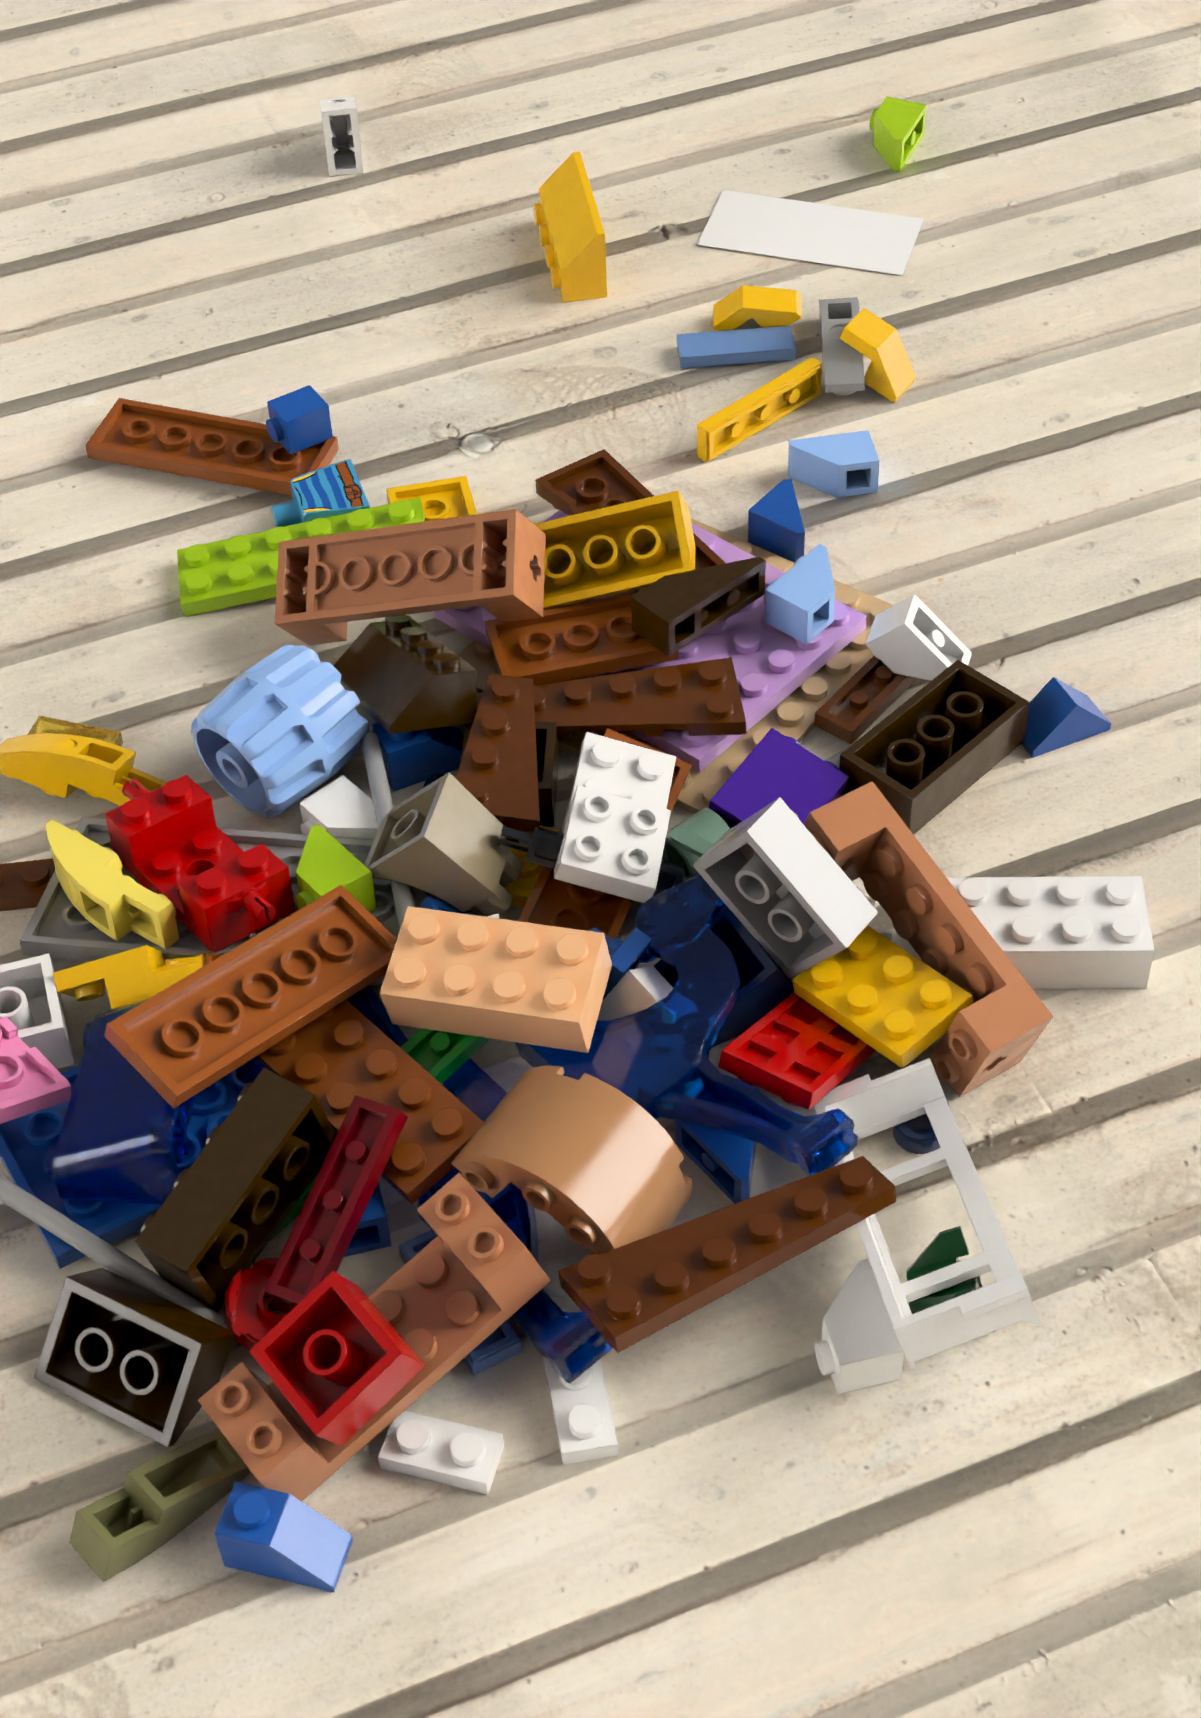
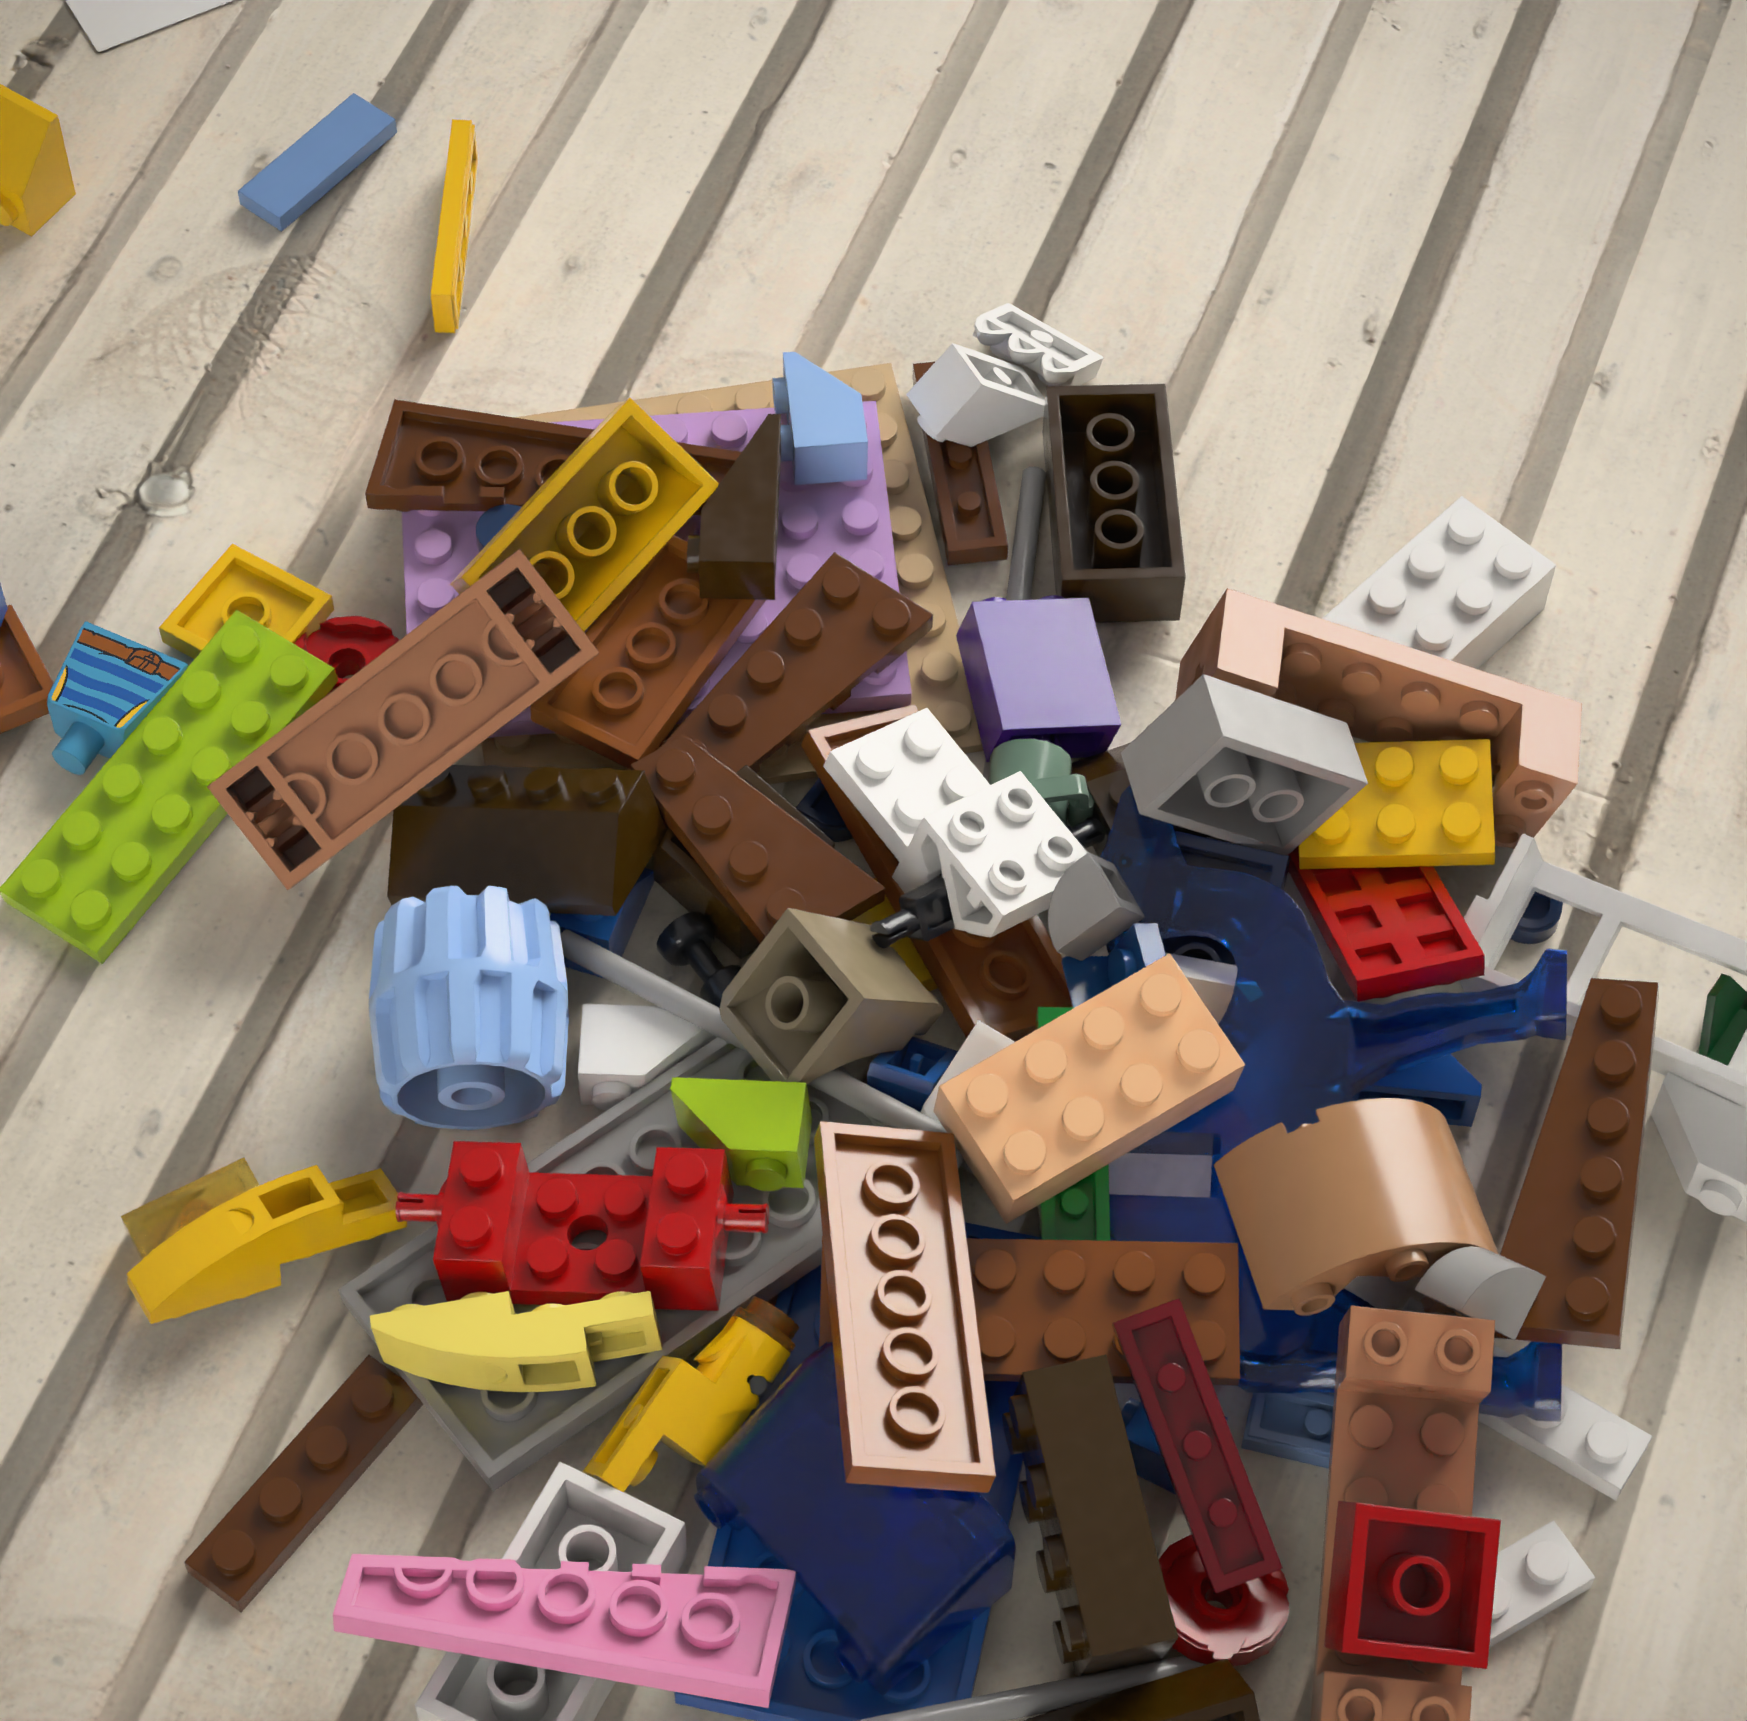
camera: 50 degrees left, 10 degrees up
(561, 1240) = (1483, 1287): none -> light grey brick
(622, 901) = (1090, 907): none -> light grey brick
(765, 305) = (283, 95): yellow slope -> none
(777, 523) = (650, 354): blue slope -> none
(836, 463) = (618, 236): light blue slope -> none
(841, 362) = (450, 75): light grey slope -> none
(890, 367) = (512, 55): yellow slope -> none
(996, 650) = (1032, 343): none -> white plate
(1061, 717) = (1180, 367): blue slope -> none

